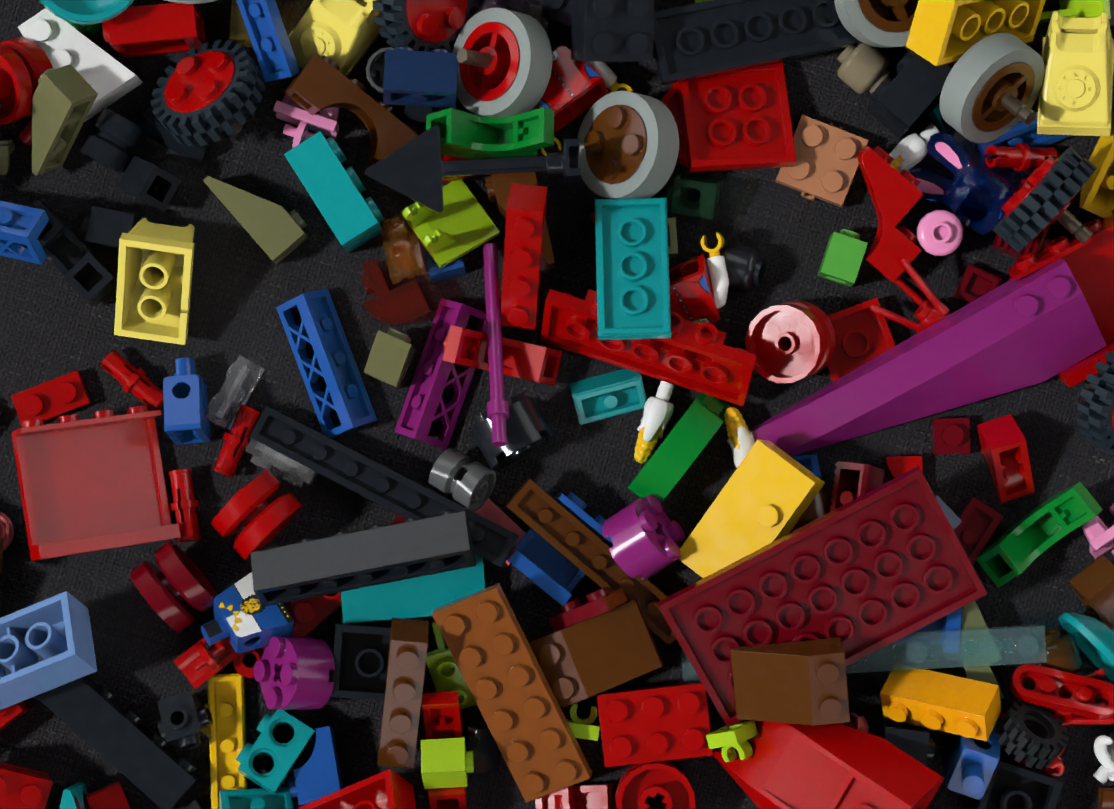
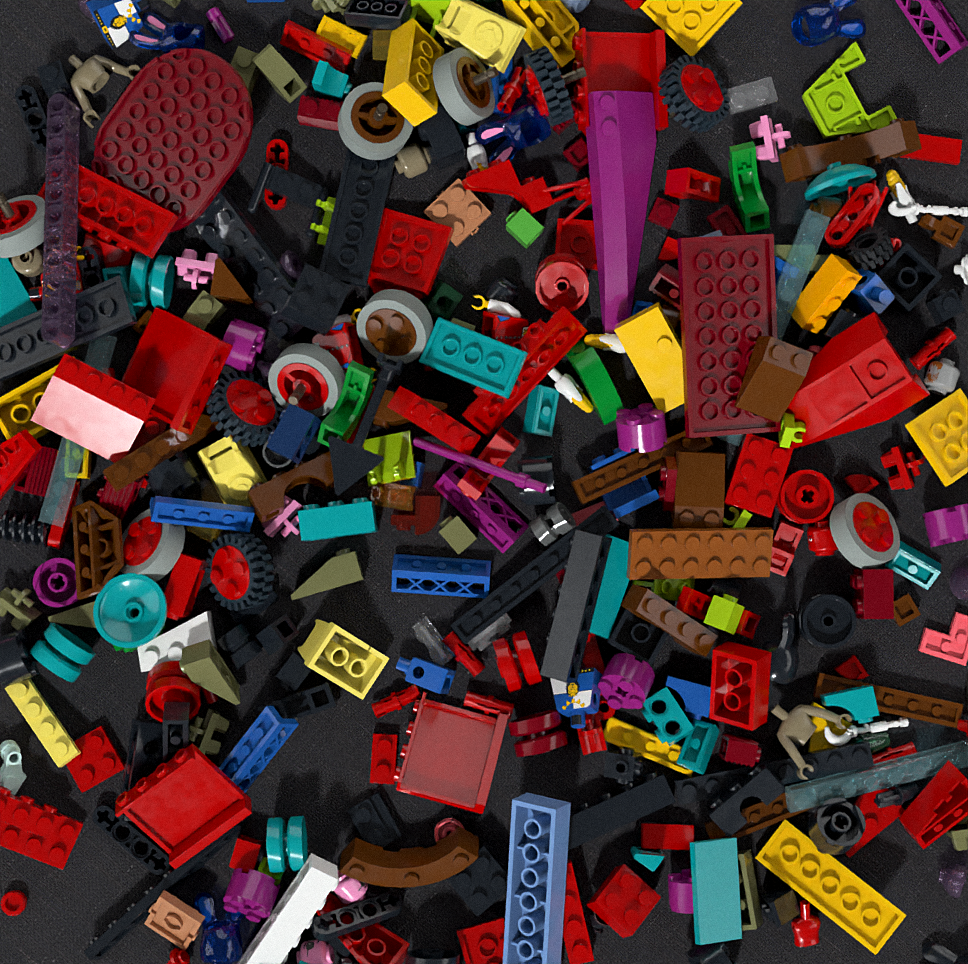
camera: 70 degrees left, 0 degrees up
(939, 233) = (536, 161): bright pink head -> none

